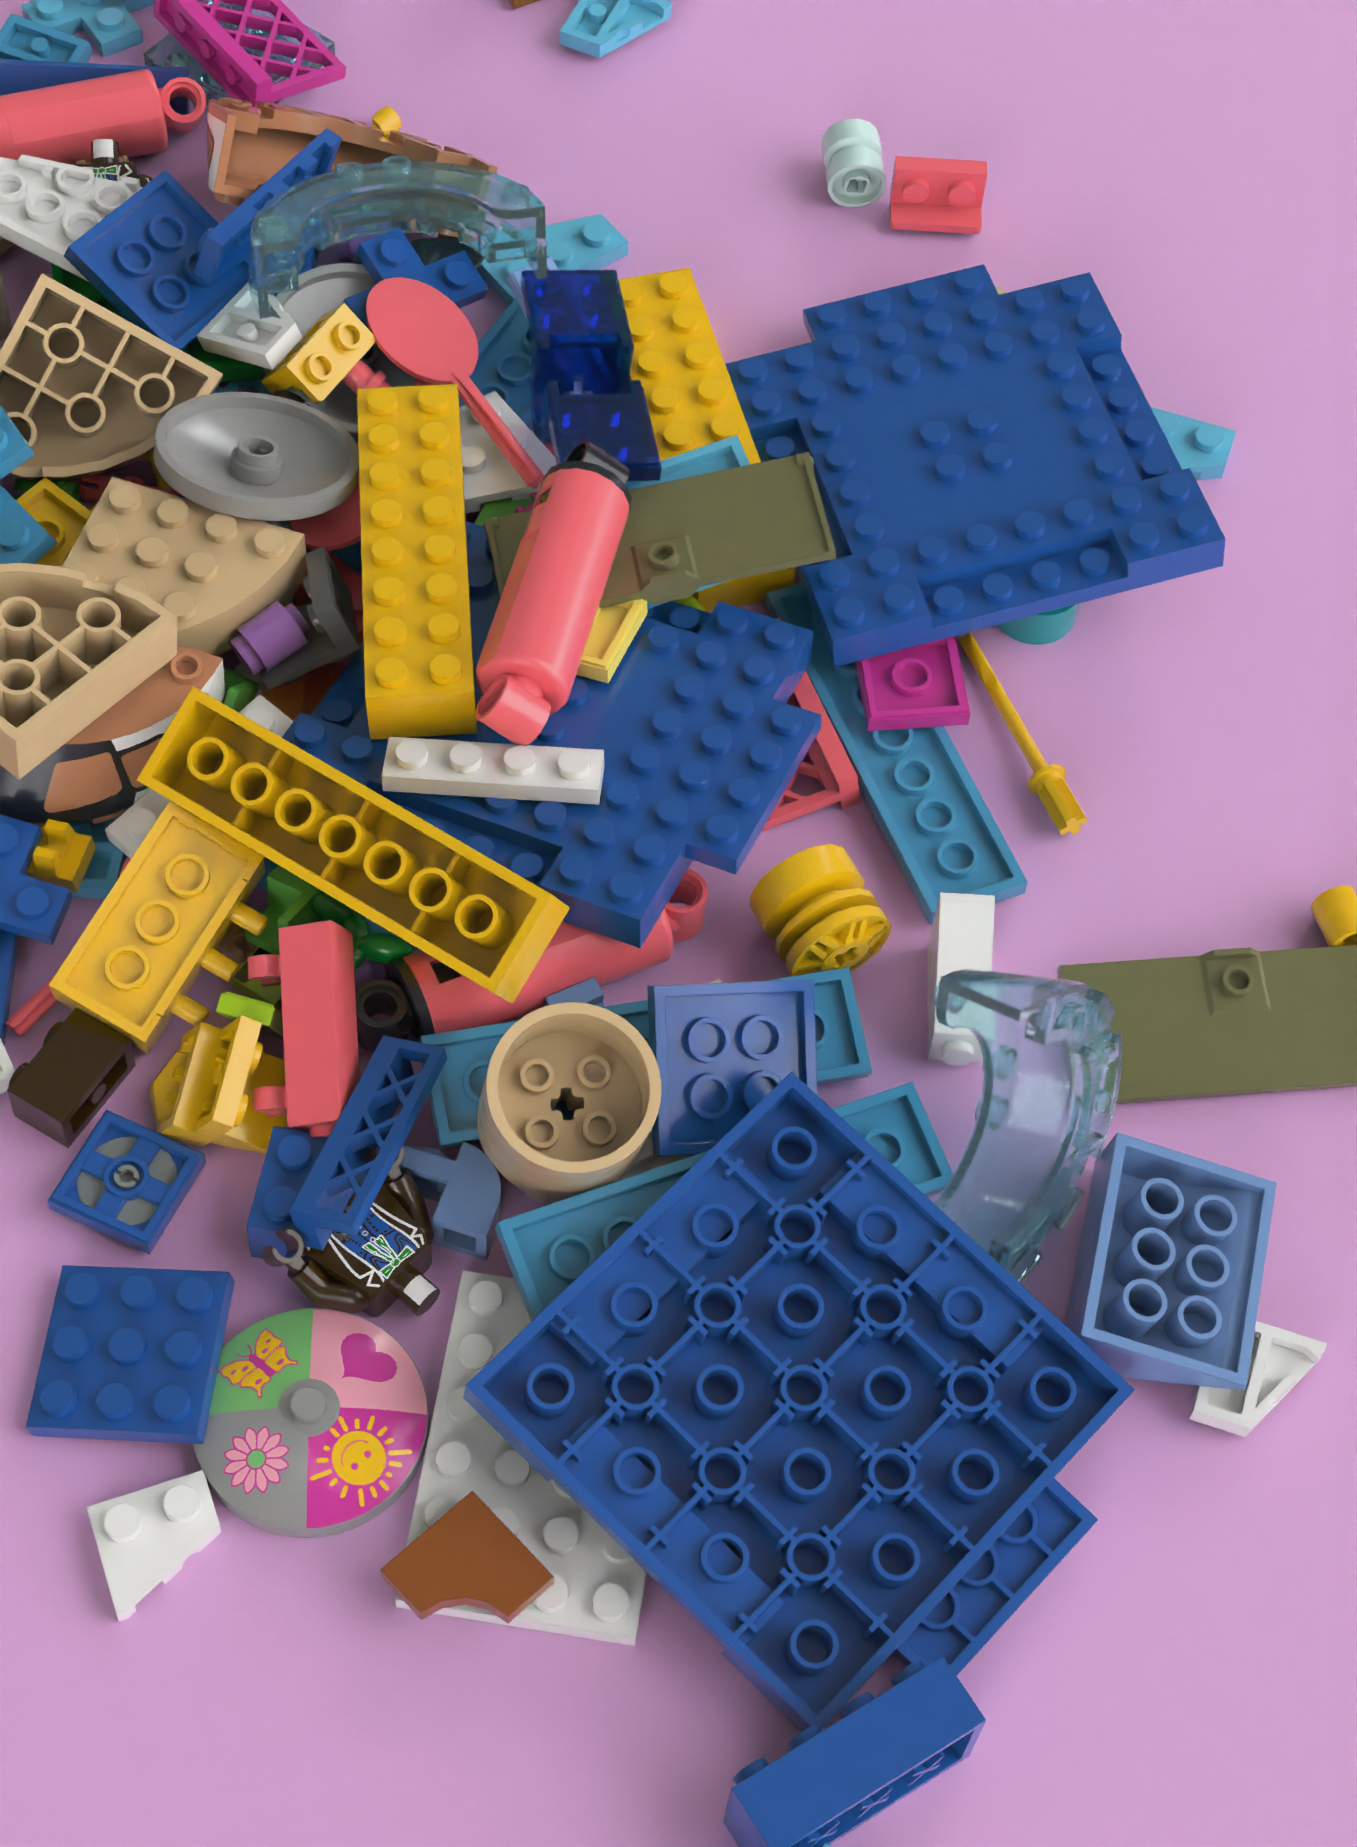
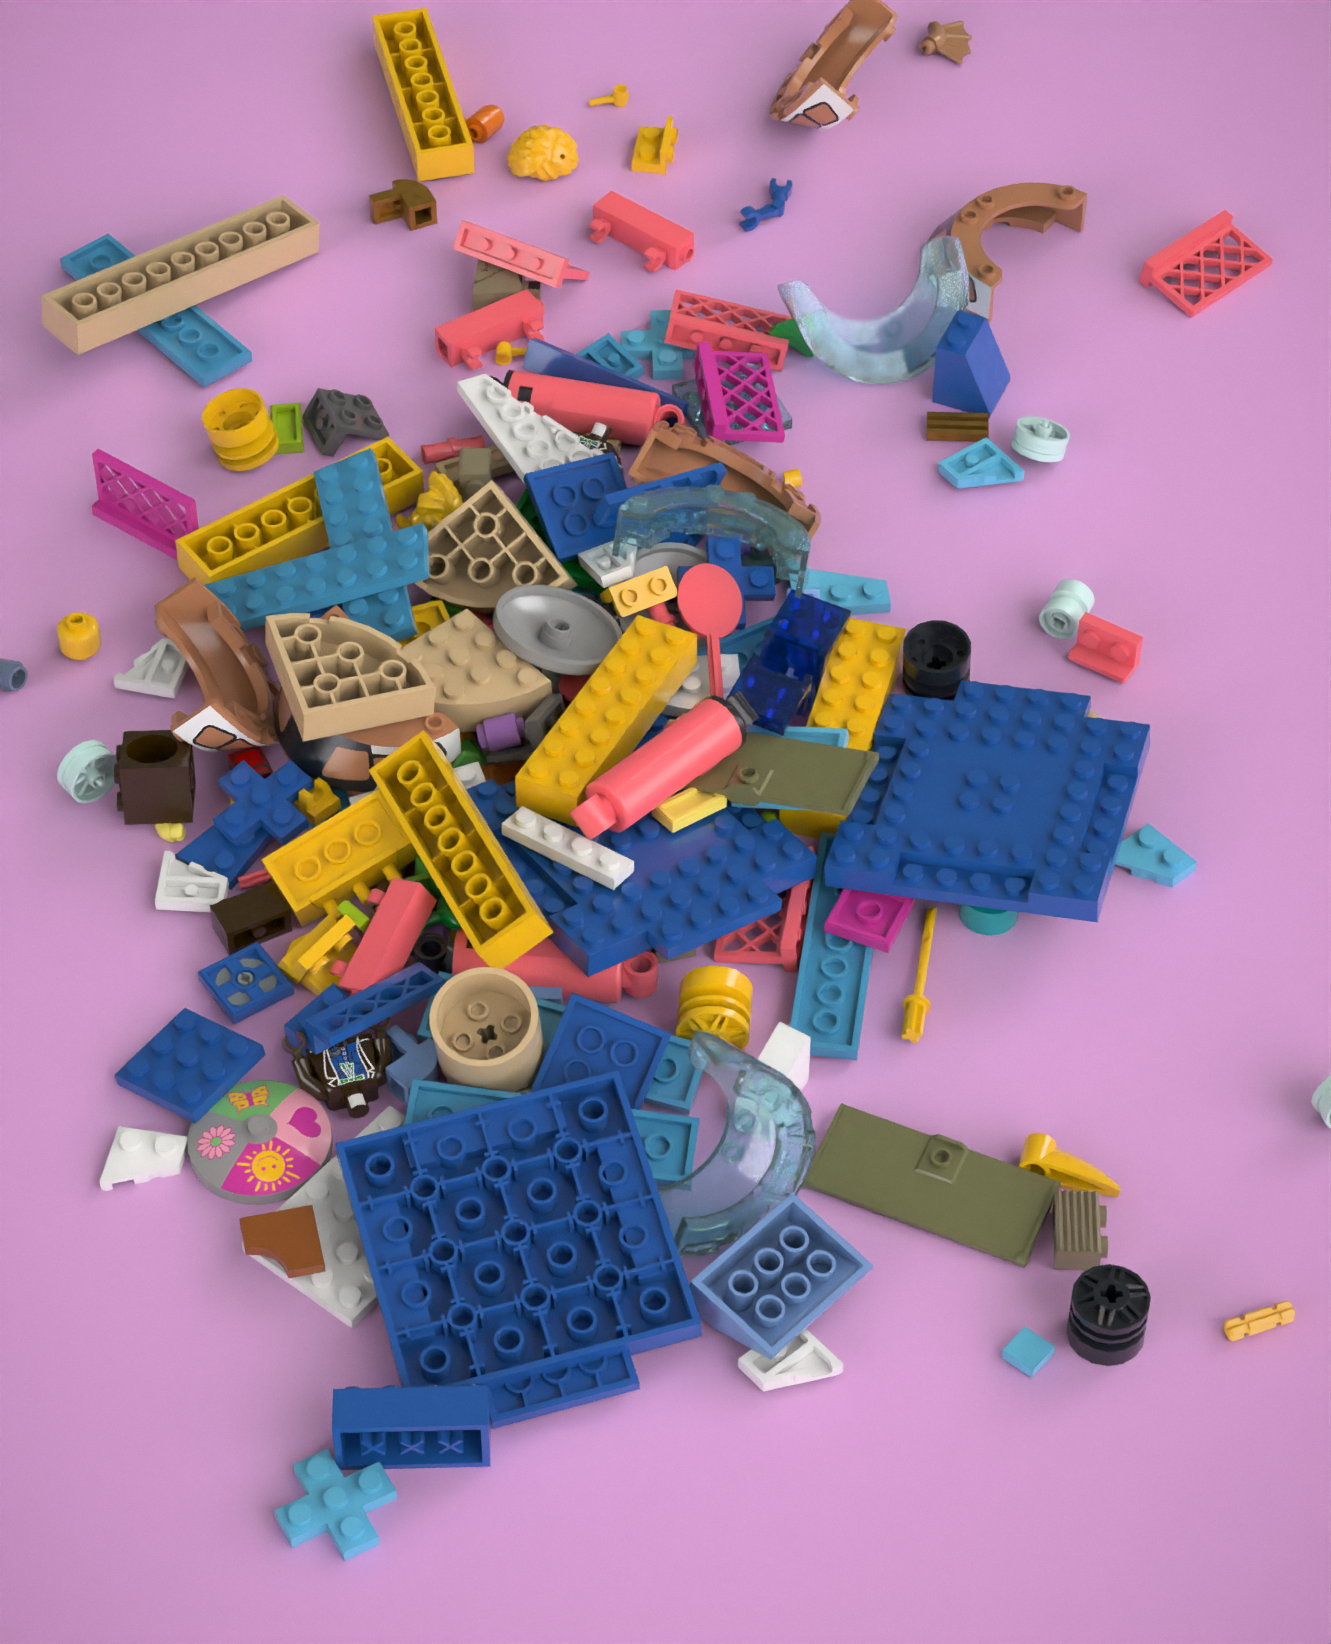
camera: 35 degrees right, 10 degrees down
(756, 296) = (935, 660): none -> black wheel

